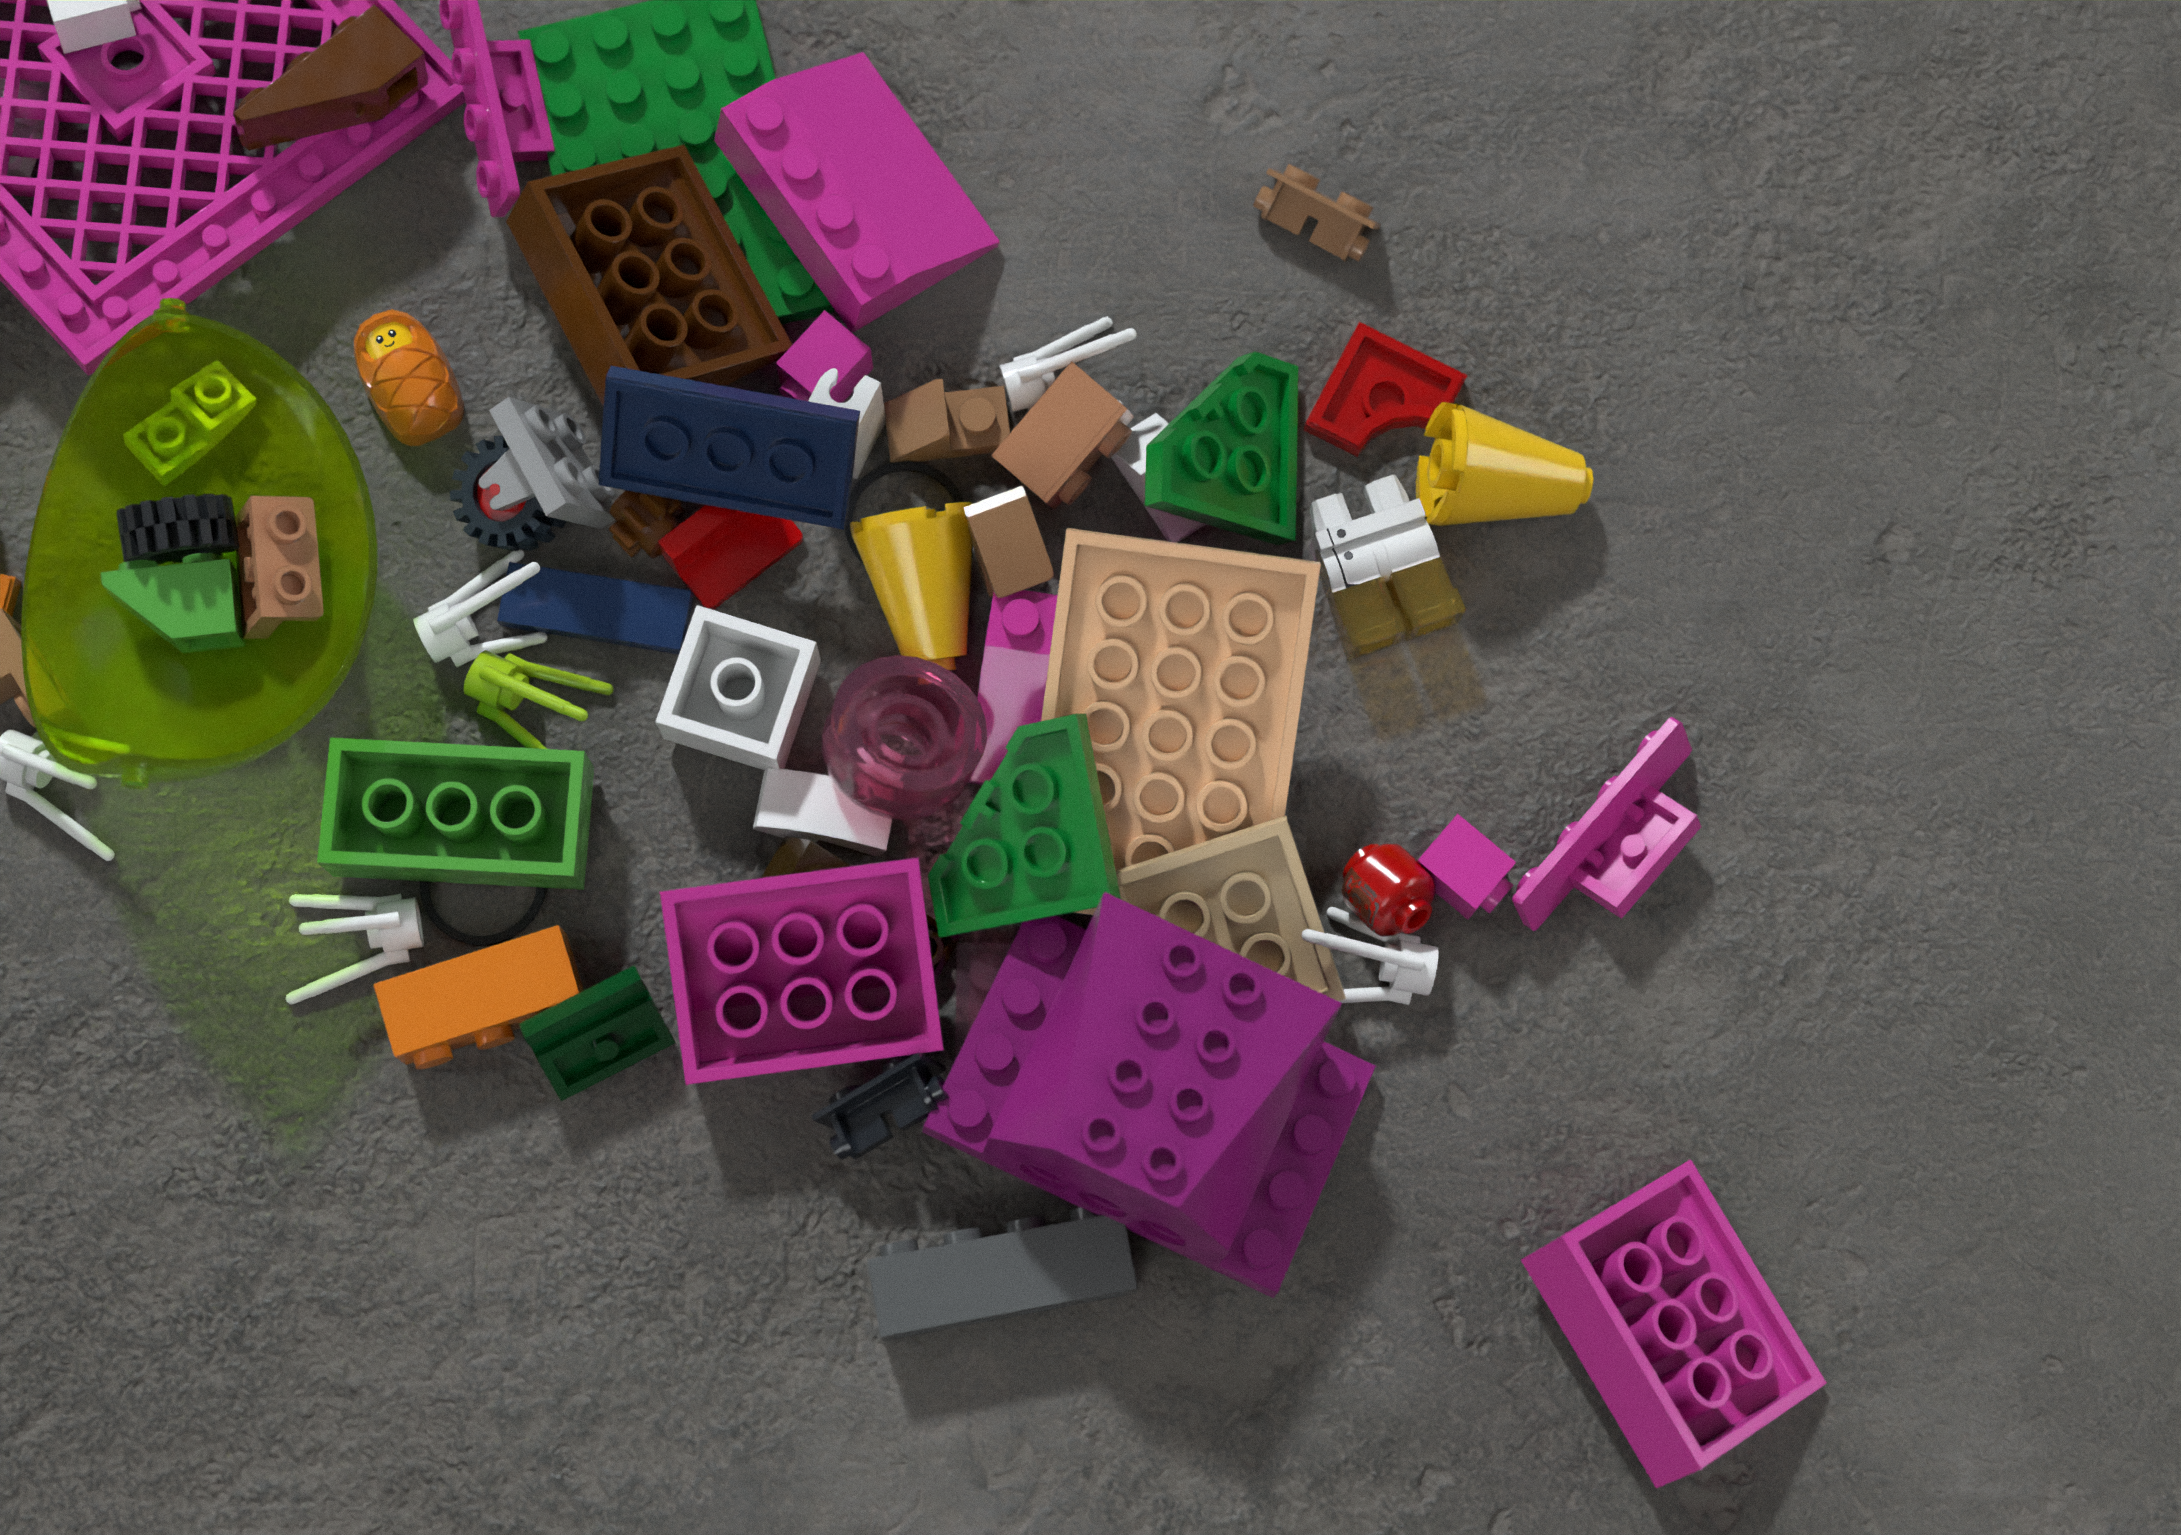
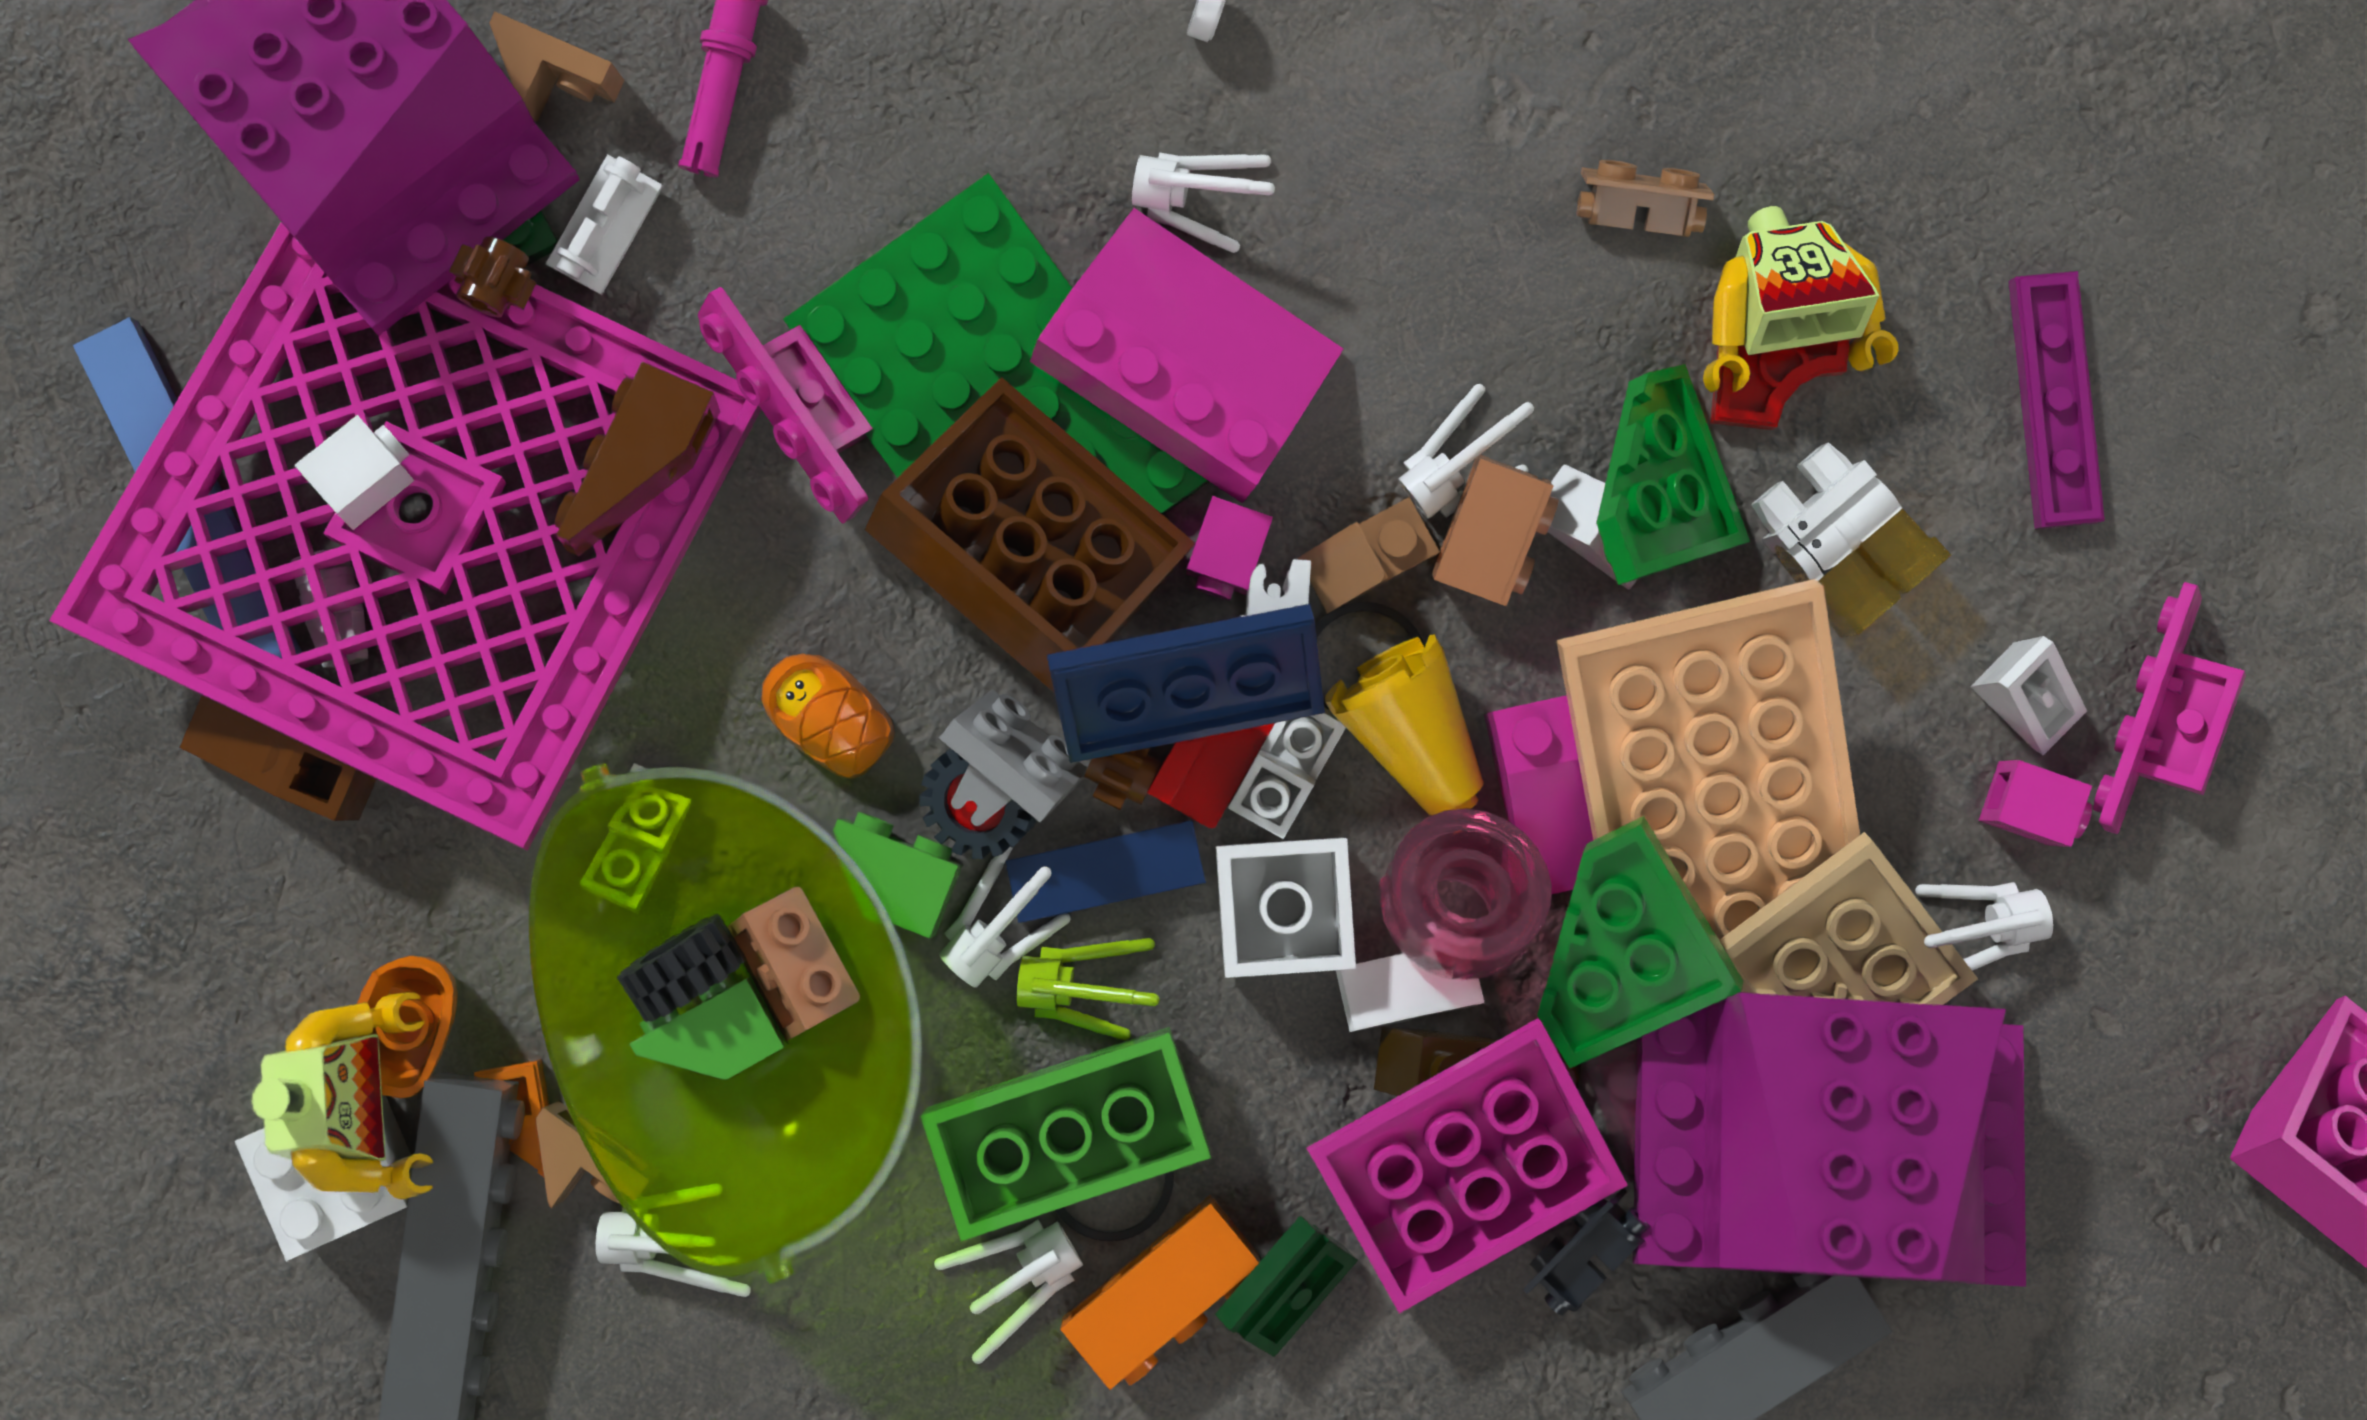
camera: 20 degrees left, 10 degrees up
(414, 545) = (908, 878): none -> bright green slope
(799, 578) = (1286, 771): none -> white slope
(901, 43) = (1166, 180): none -> white plant
(1008, 543) = (1493, 669): medium nougat slope -> none
(1388, 889) = (1975, 855): red head -> none
(1413, 333) = (1794, 292): none -> torso
(1495, 471) = (1919, 402): yellow cone -> none
(1500, 769) = (2032, 692): none -> white slope
(1623, 526) = (2056, 400): none -> magenta tile

